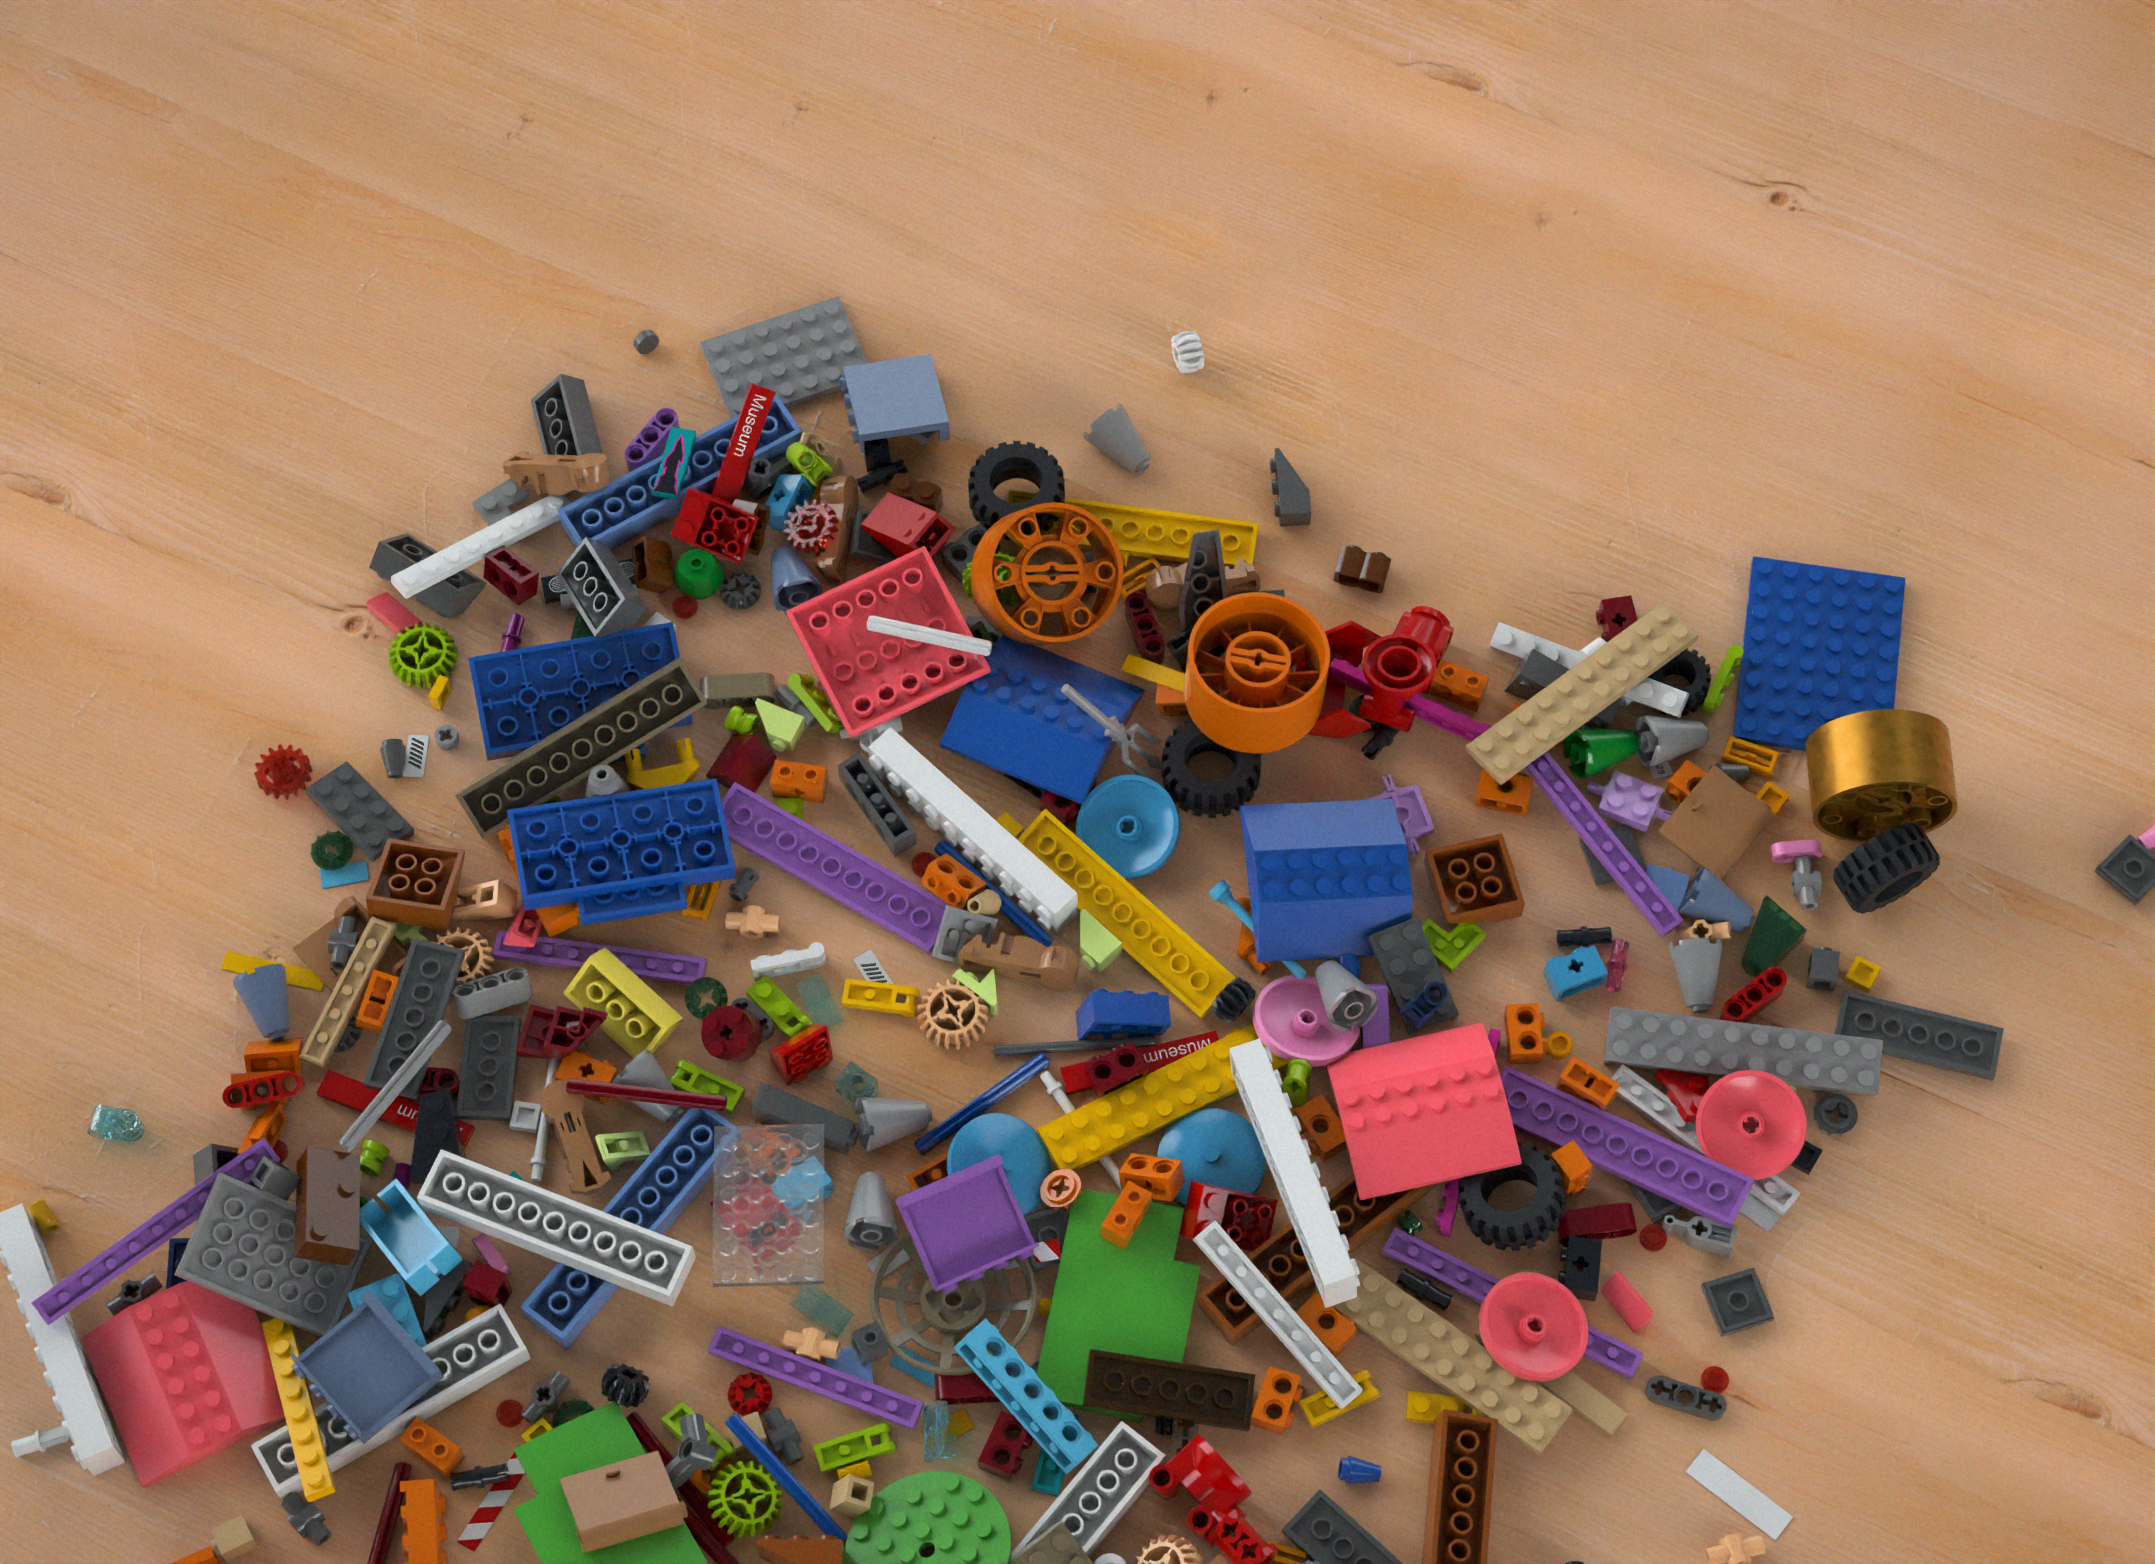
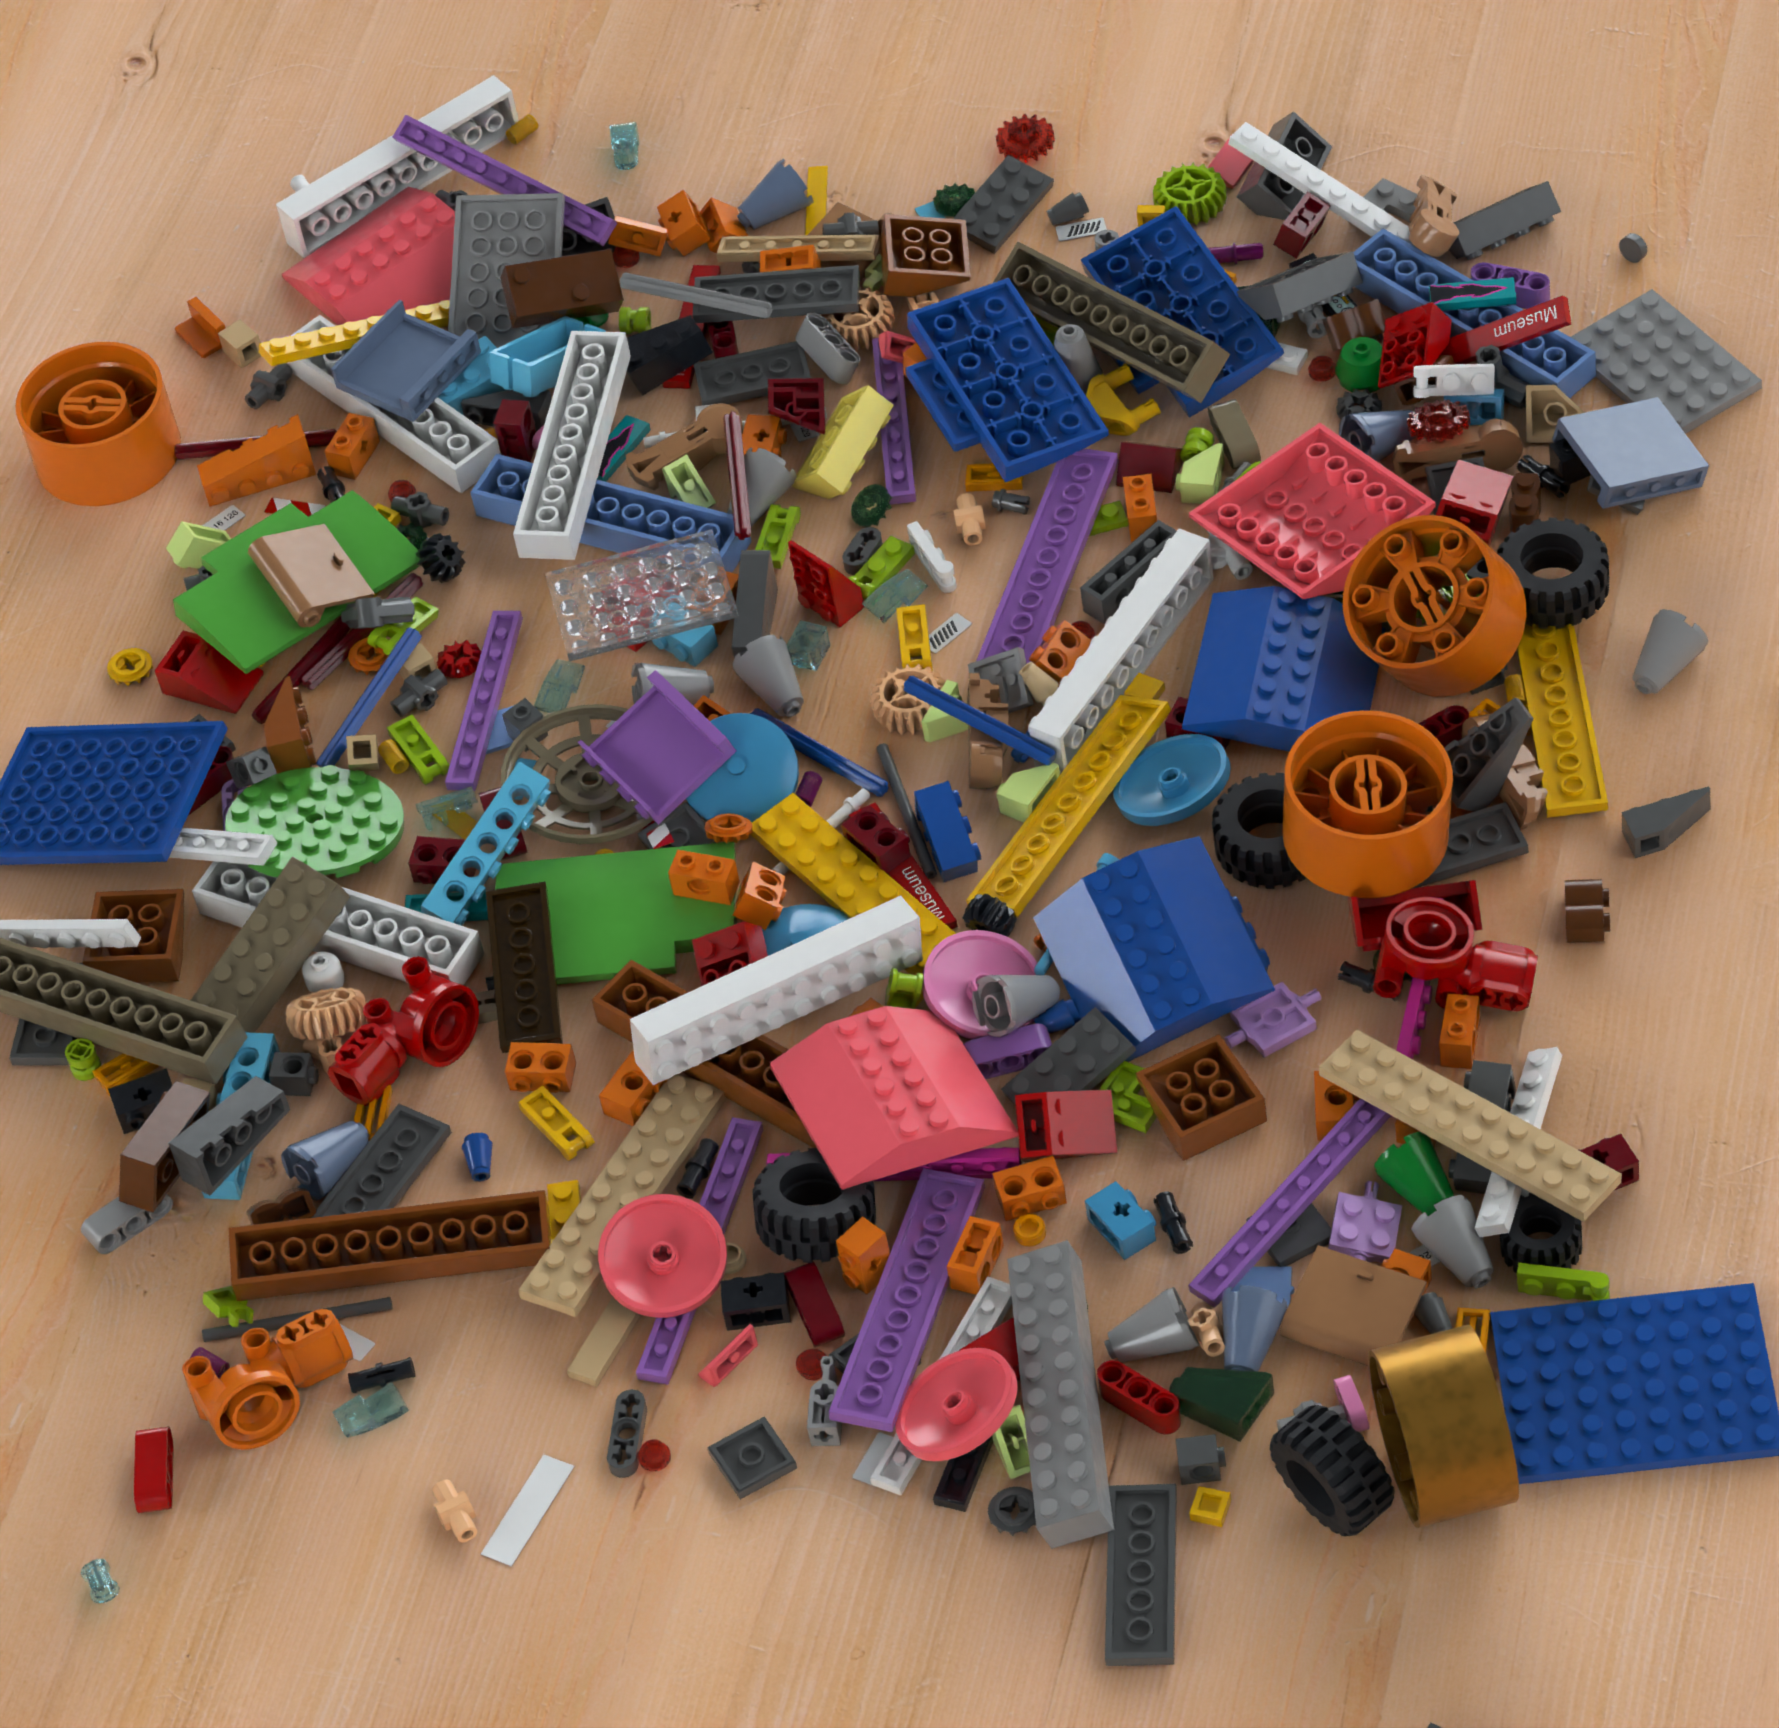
camera: 85 degrees right, 15 degrees down
(250, 1089) = (670, 213): red beam -> none
(275, 1178) = (577, 239): dark grey brick -> none
(719, 1026) = (831, 529): dark red brick -> none
(723, 1505) = (323, 688): lime gear -> none
(774, 501) = (1454, 380): none -> white plate
(810, 466) = (1515, 400): lime piece -> none
(811, 1344) = (519, 684): light nougat axle -> none
(929, 635) = (1323, 522): white axle -> none
(1022, 955) = (979, 720): none -> blue axle
(1026, 1117) = (811, 787): none -> magenta piece
(1117, 731) = (1267, 714): light grey piece -> none
(1278, 1315) = (615, 1027): white plate -> none
(1409, 1223) = (771, 1137): clear green bush -> none
(1420, 1007) = (1024, 1075): dark blue piece -> none
(1474, 991) = (1065, 1124): none -> red slope
(1616, 965) = (1143, 1259): clear pink axle -> none

